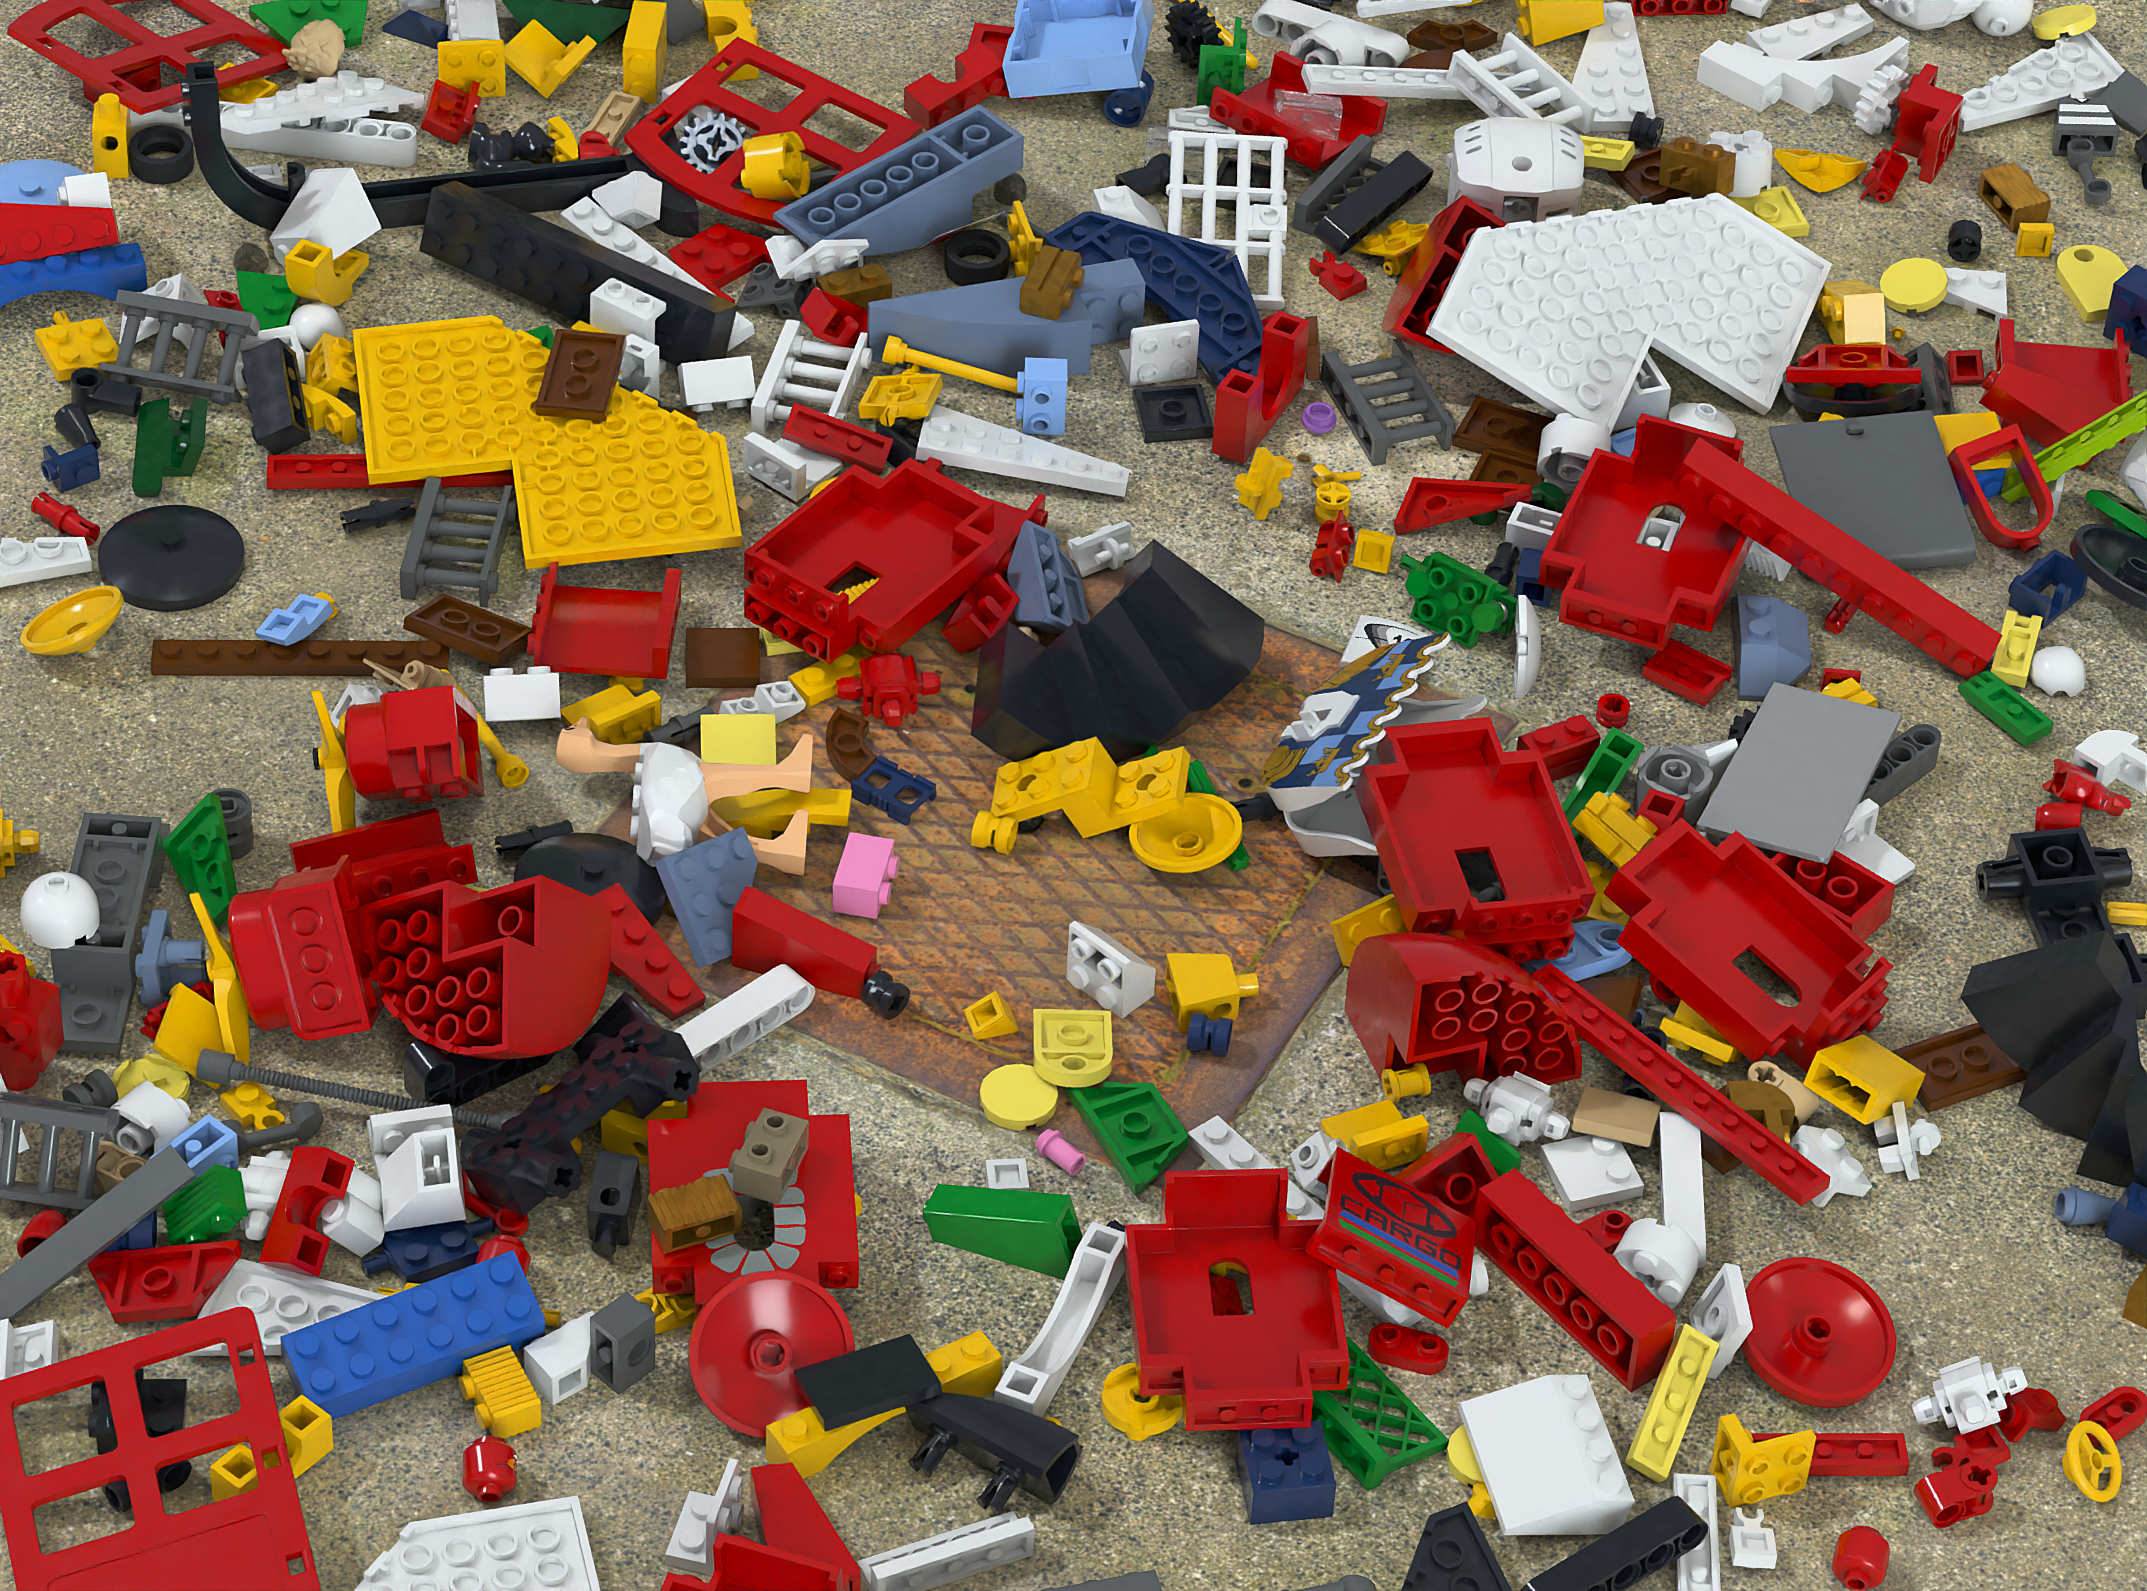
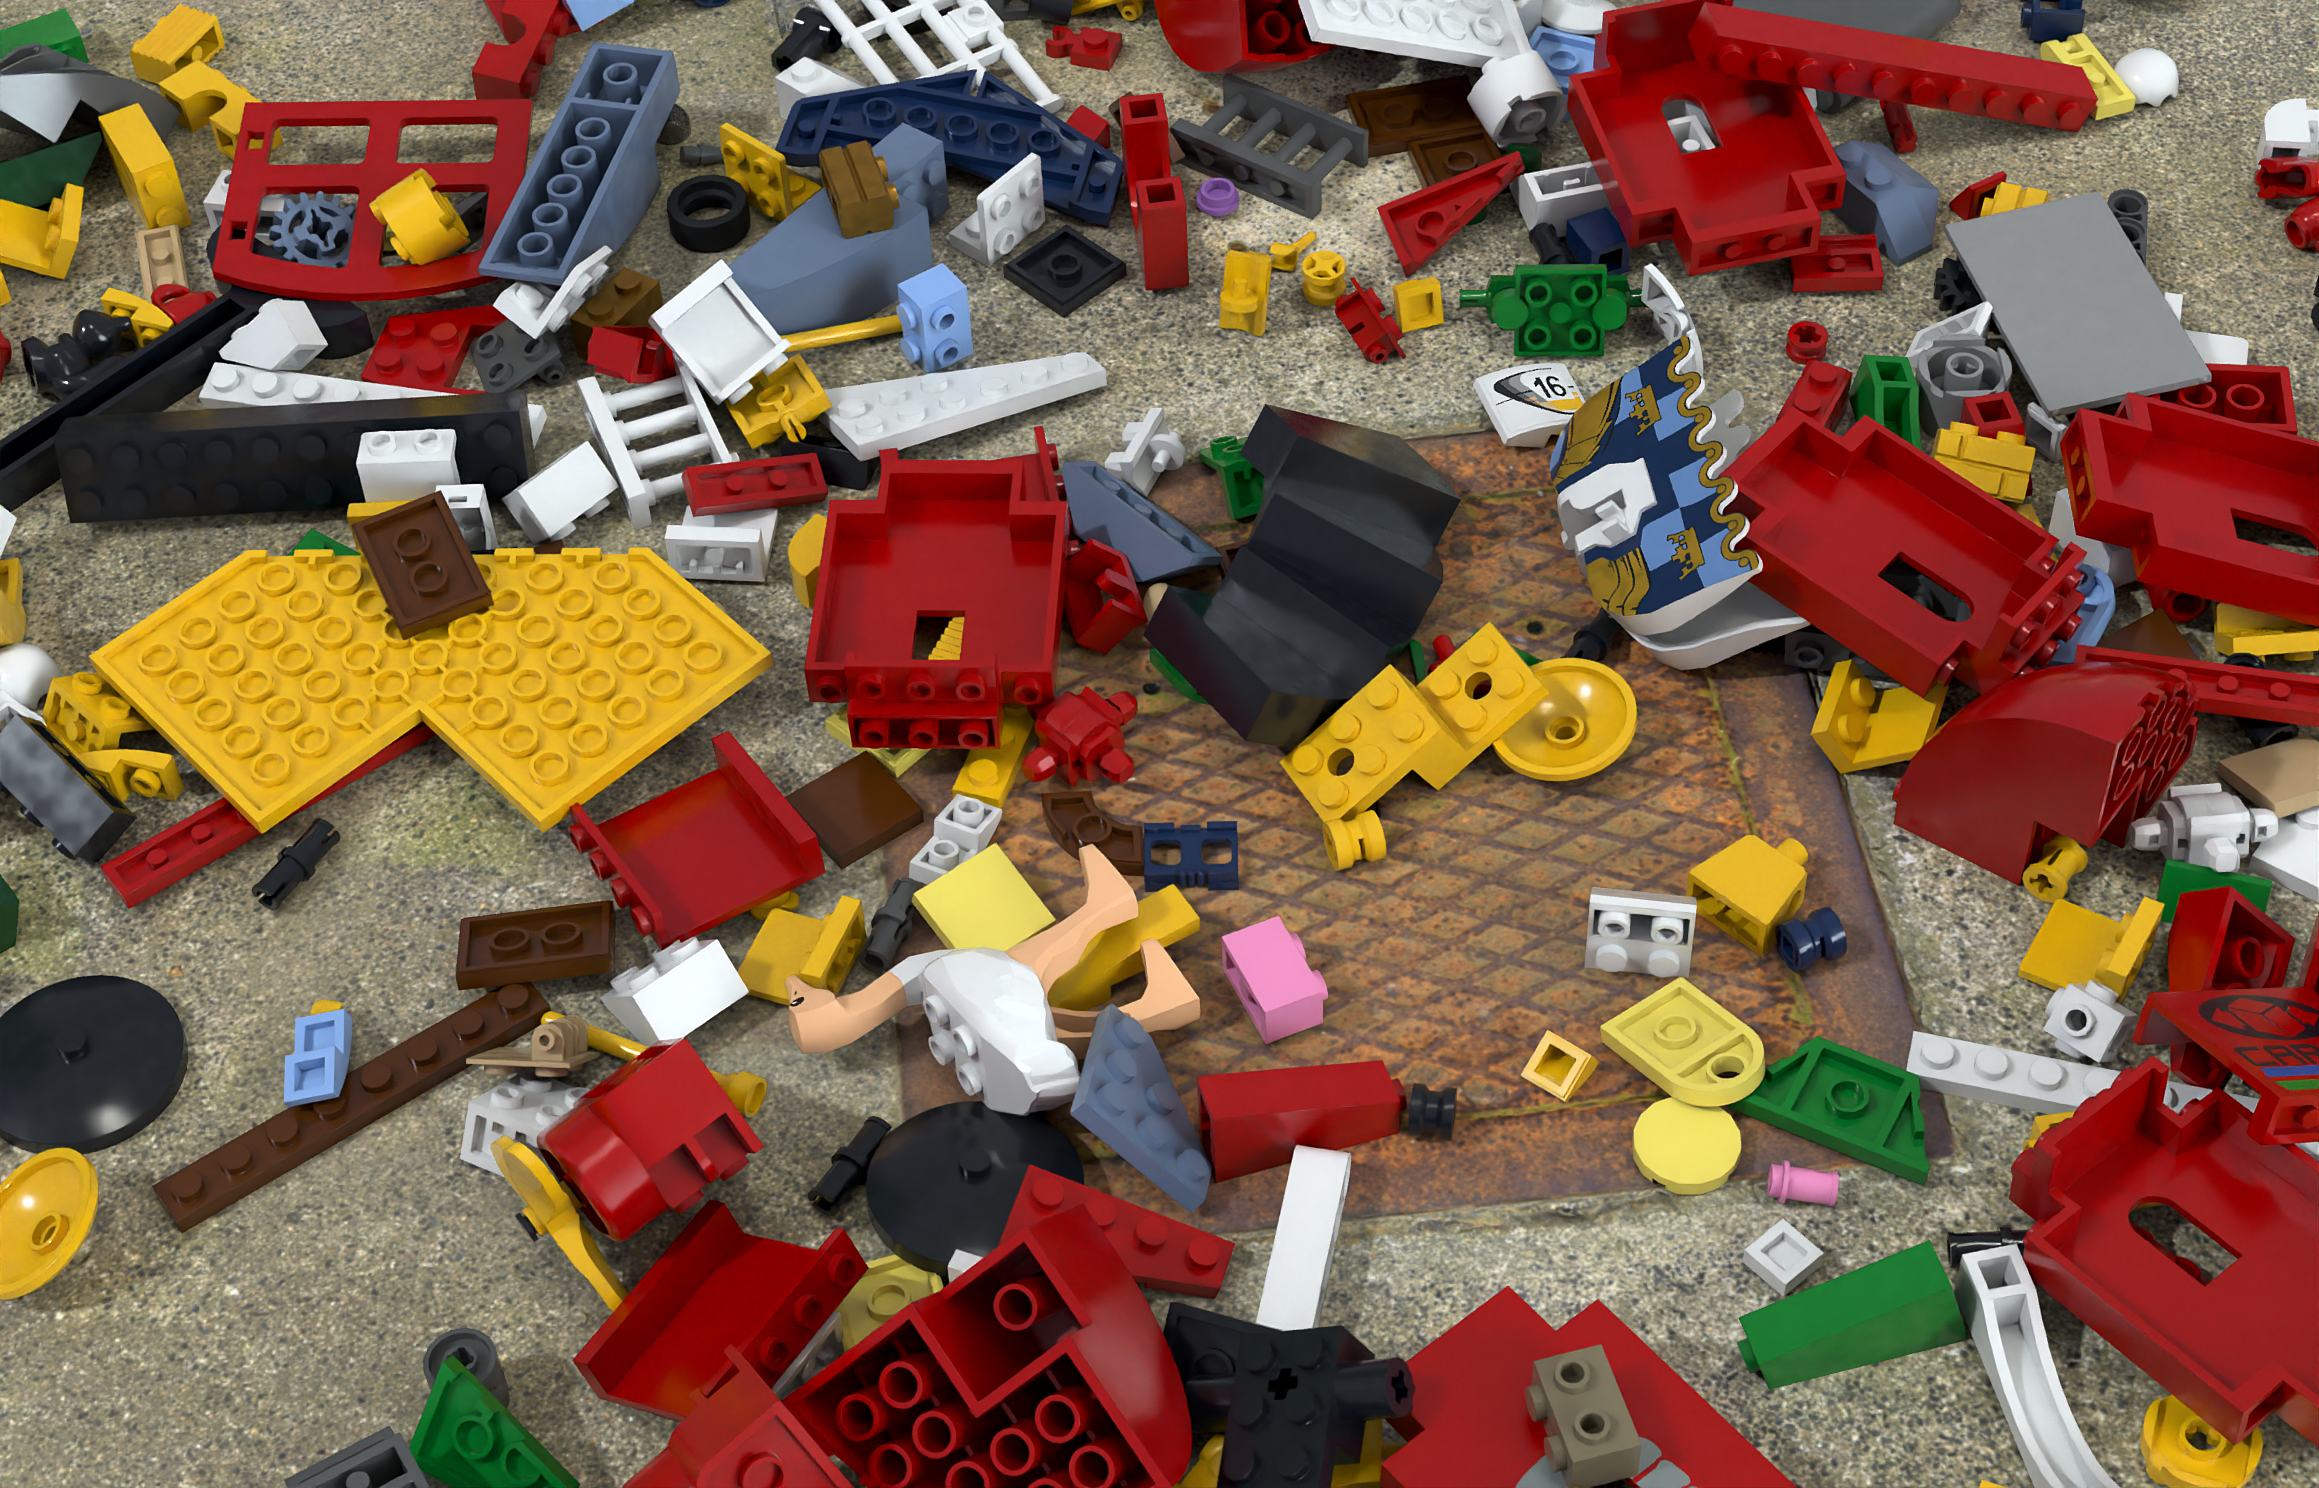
camera: 30 degrees left, 5 degrees up
(429, 526) = (394, 878): dark grey fence -> none
(888, 331) = (719, 335): none -> white panel
(946, 236) = (668, 192): sticker -> none
(2006, 707) = (2144, 137): green hinge -> none

